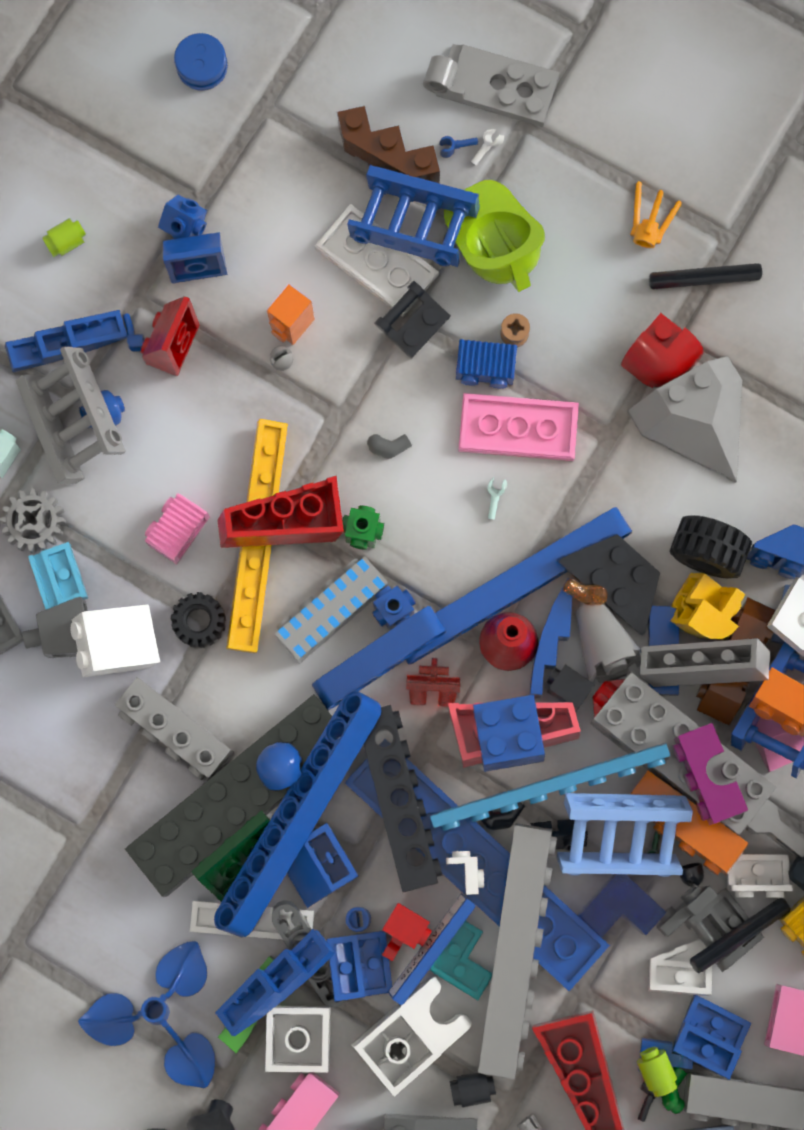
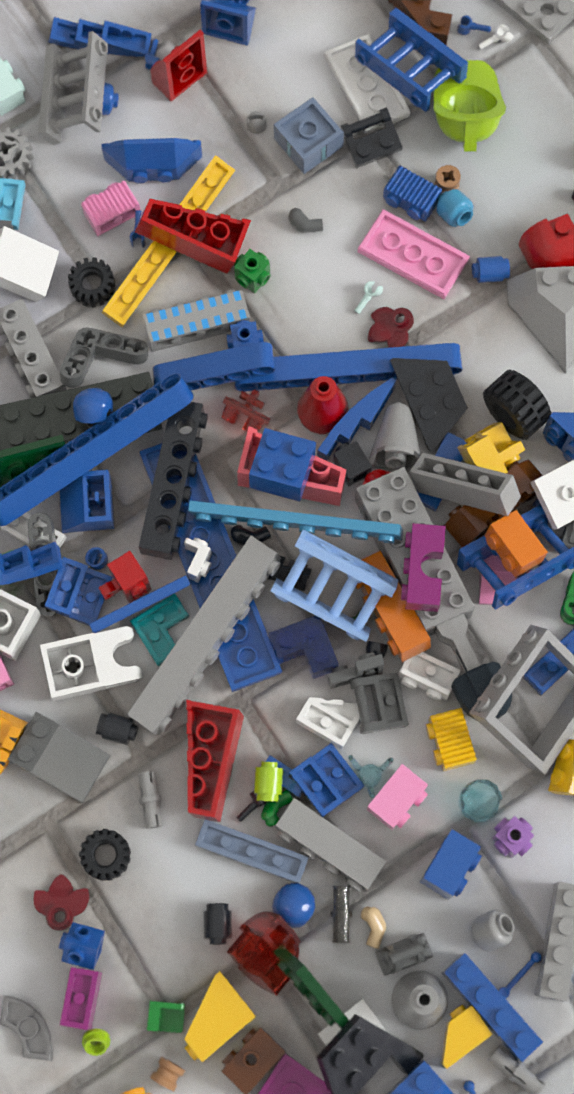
camera: 25 degrees right, 5 degrees down
(193, 455) = (152, 158): none -> blue wedge
(215, 536) = (133, 235): none -> blue hand
(242, 689) = (97, 346): none -> dark grey beam
(290, 315) = (277, 90): orange brick -> none
(347, 350) = (308, 135): none -> sand blue container
(533, 523) = (388, 329): none -> dark red plate
(538, 358) = (455, 208): none -> dark azure head
(586, 593) = (400, 395): clear orange arm -> none
(608, 407) = (491, 269): none -> blue brick
(739, 935) = (388, 710): black axle -> none
(753, 1010) = (370, 774): none -> clear light blue plant

